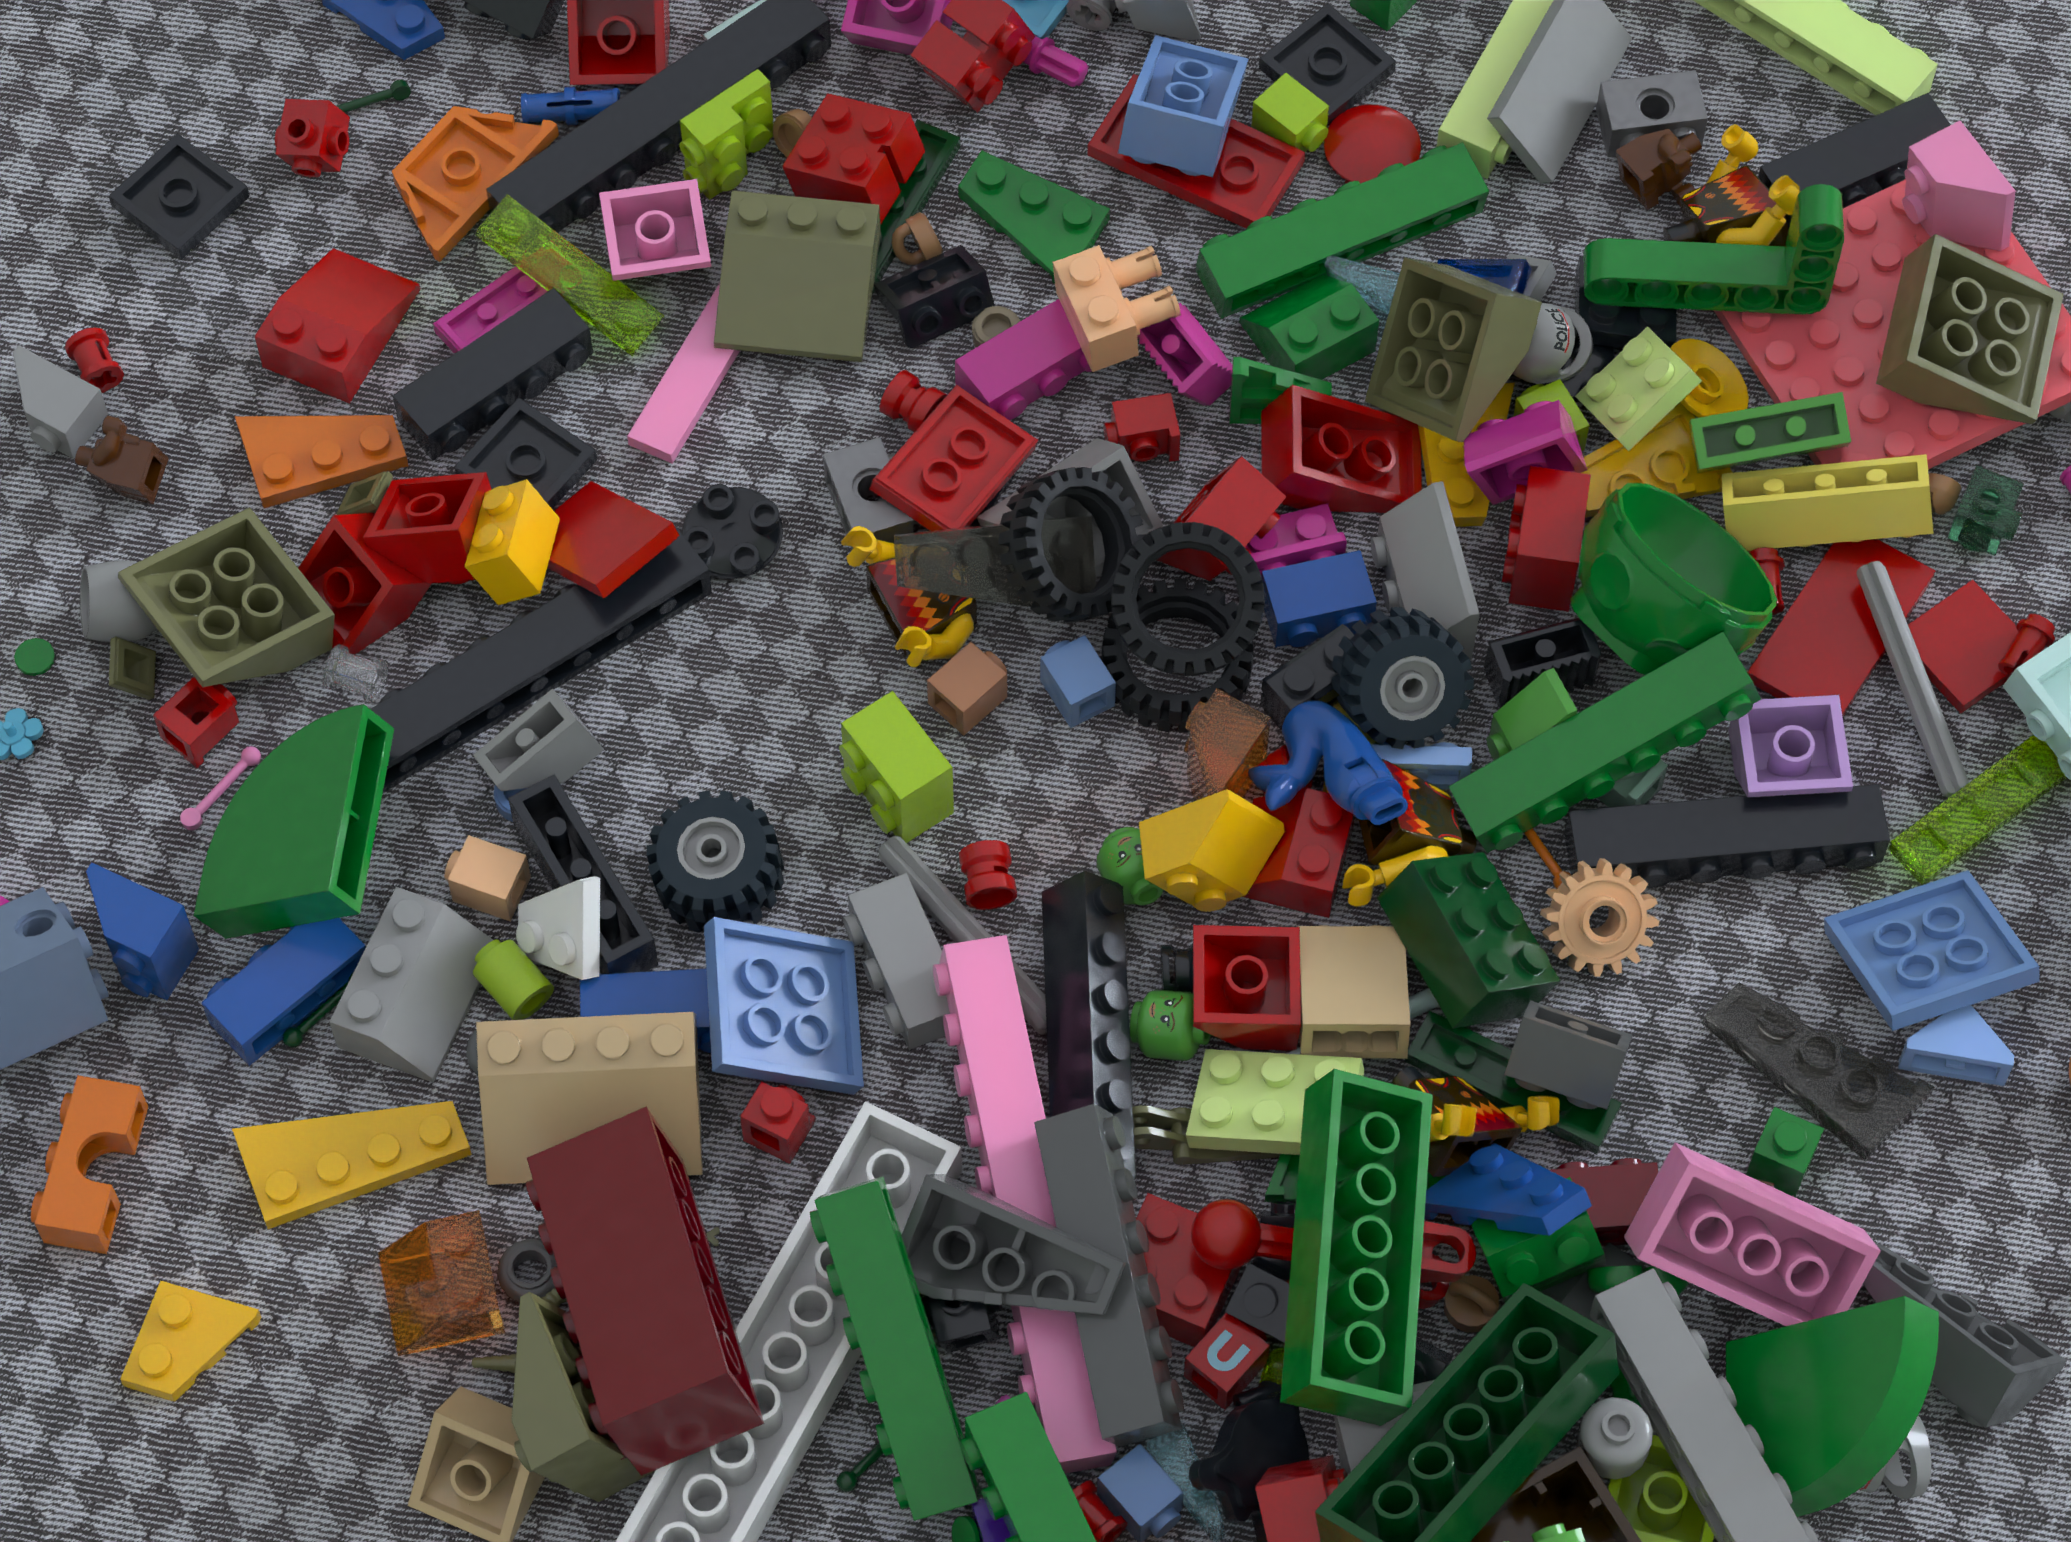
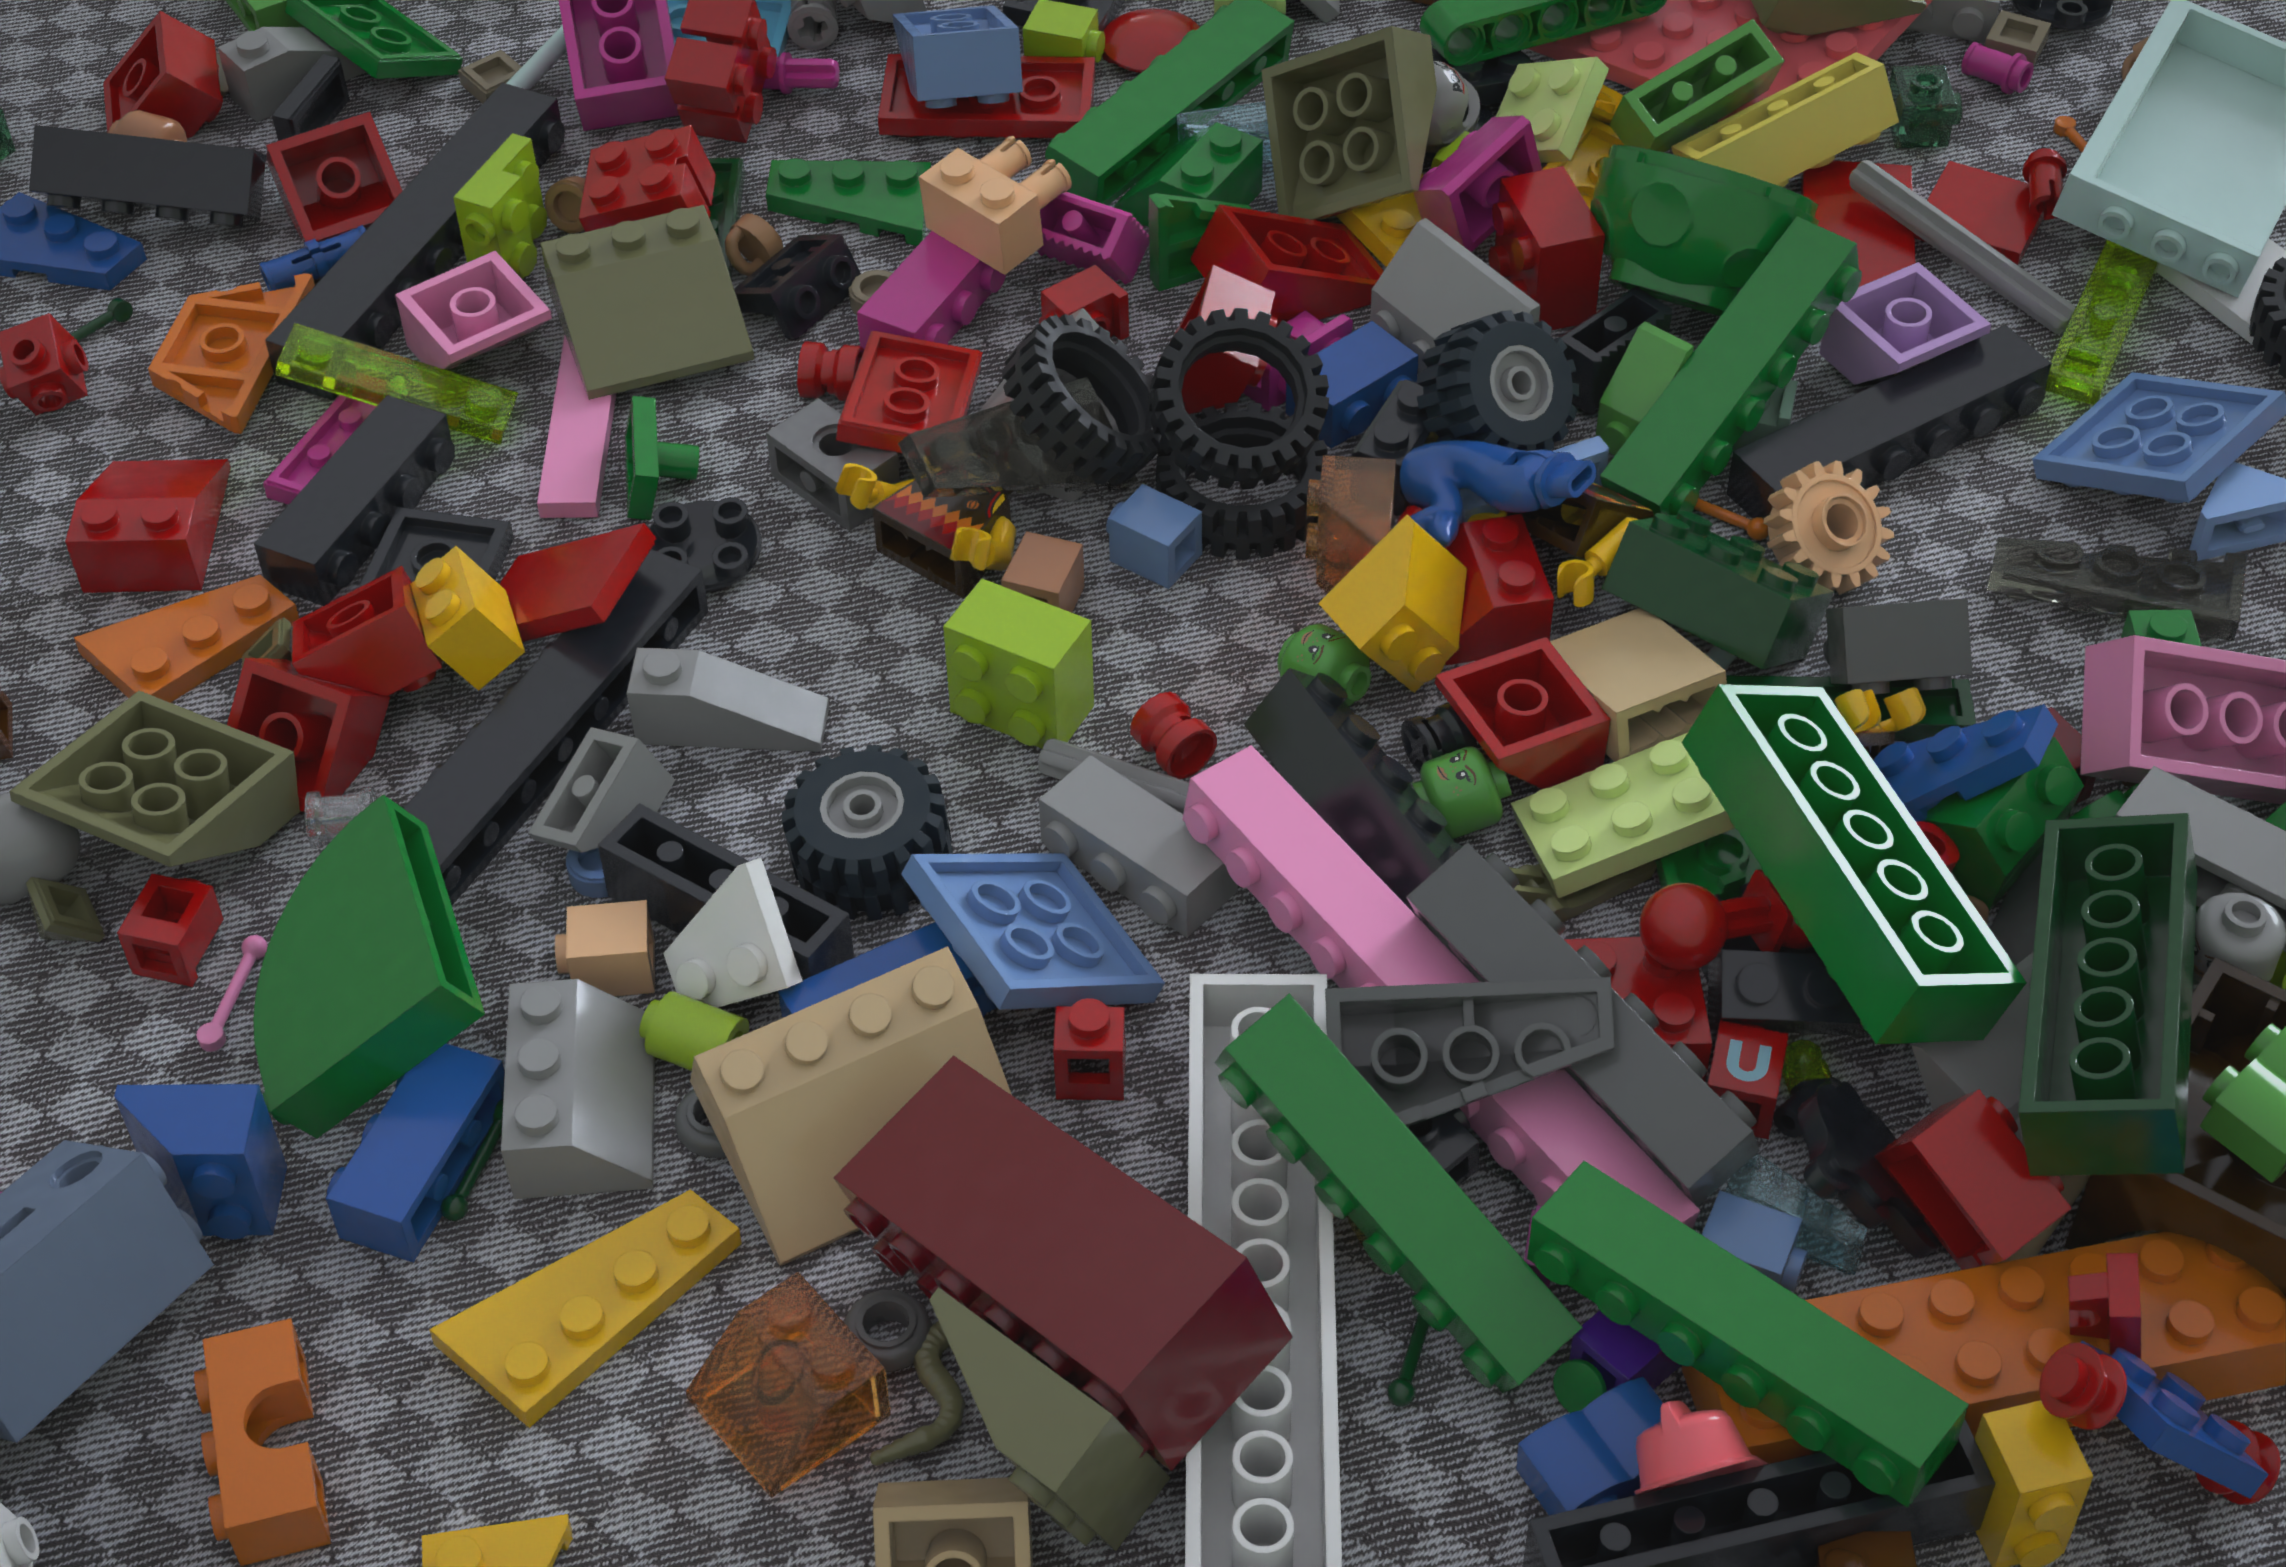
camera: 25 degrees left, 15 degrees down
(672, 695) = (712, 702): none -> light grey slope
(733, 431) = (650, 459): none -> green tile

